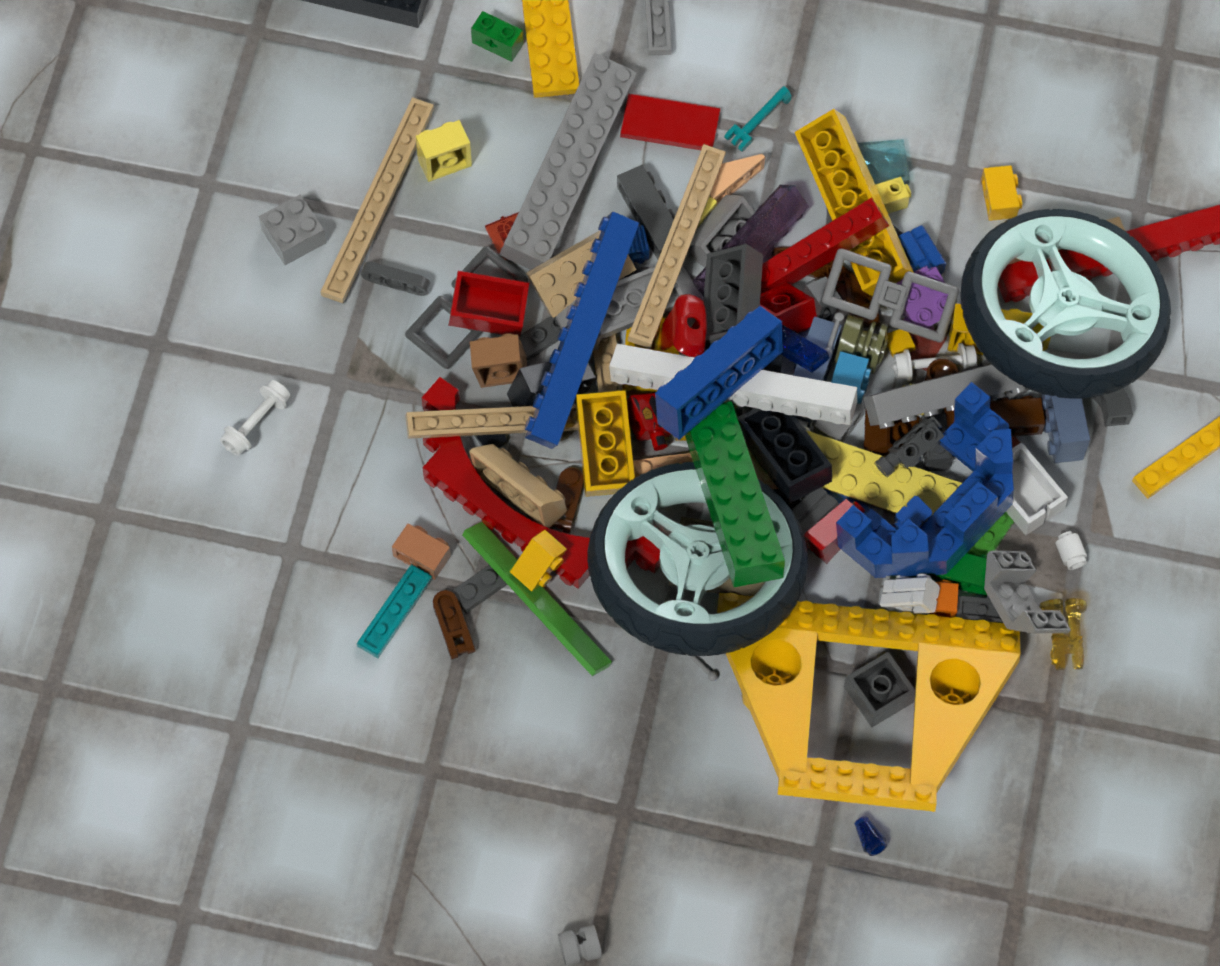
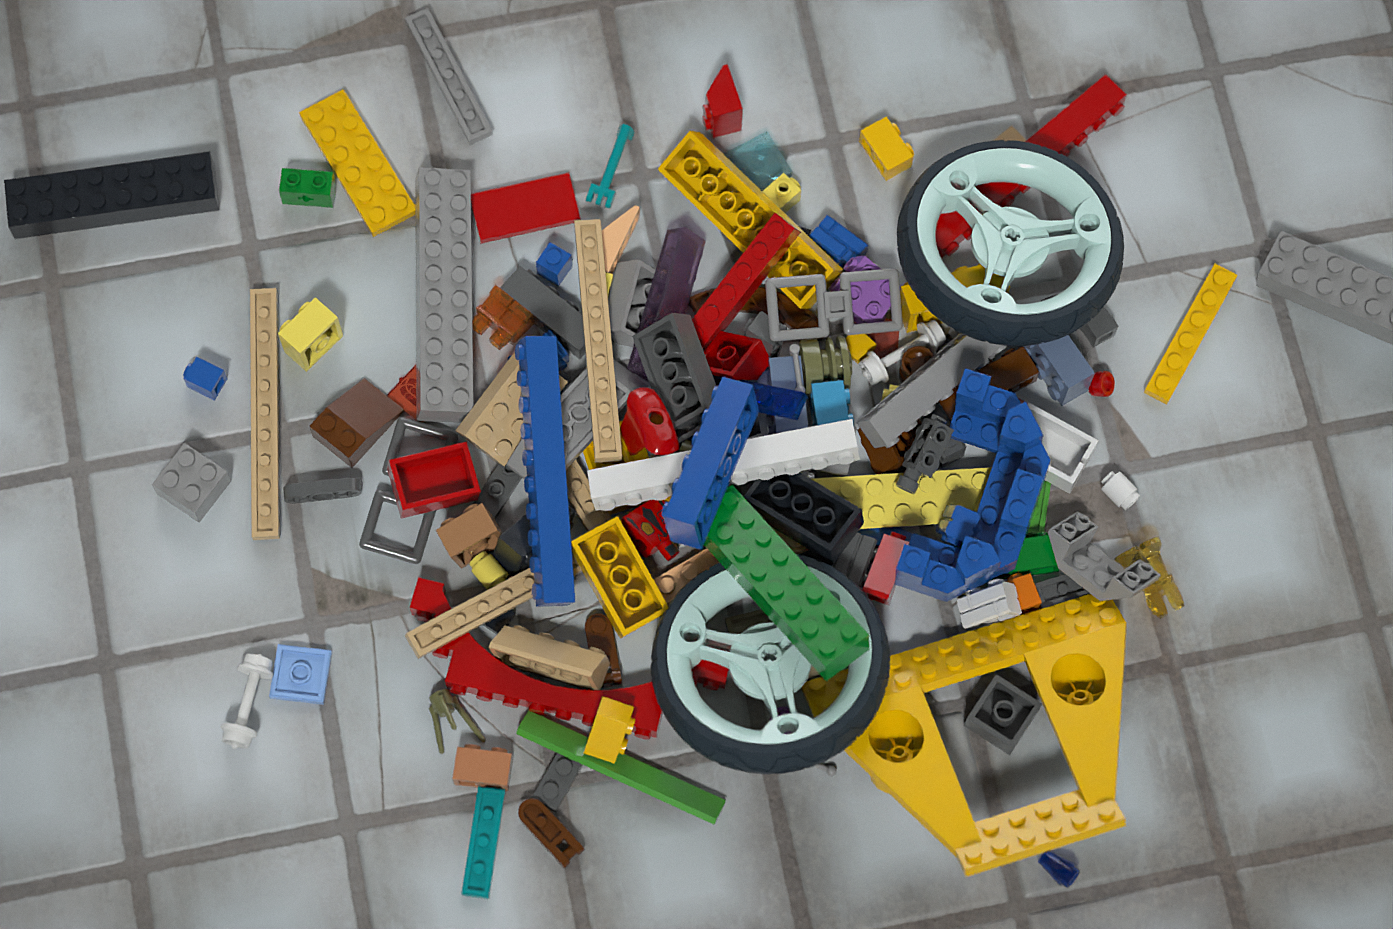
camera: 25 degrees left, 5 degrees up
(309, 416) = (300, 674): none -> light blue tile
(342, 153) = (204, 378): none -> blue brick
(413, 488) = (444, 705): none -> olive plant
(448, 236) = (355, 422): none -> reddish brown slope
(500, 394) = (488, 570): none -> light yellow brick
(608, 198) = (504, 316): none -> clear orange hips
(672, 175) = (554, 264): none -> blue brick
(873, 103) = (723, 106): none -> red slope
(1097, 457) = (1102, 384): none -> red tile

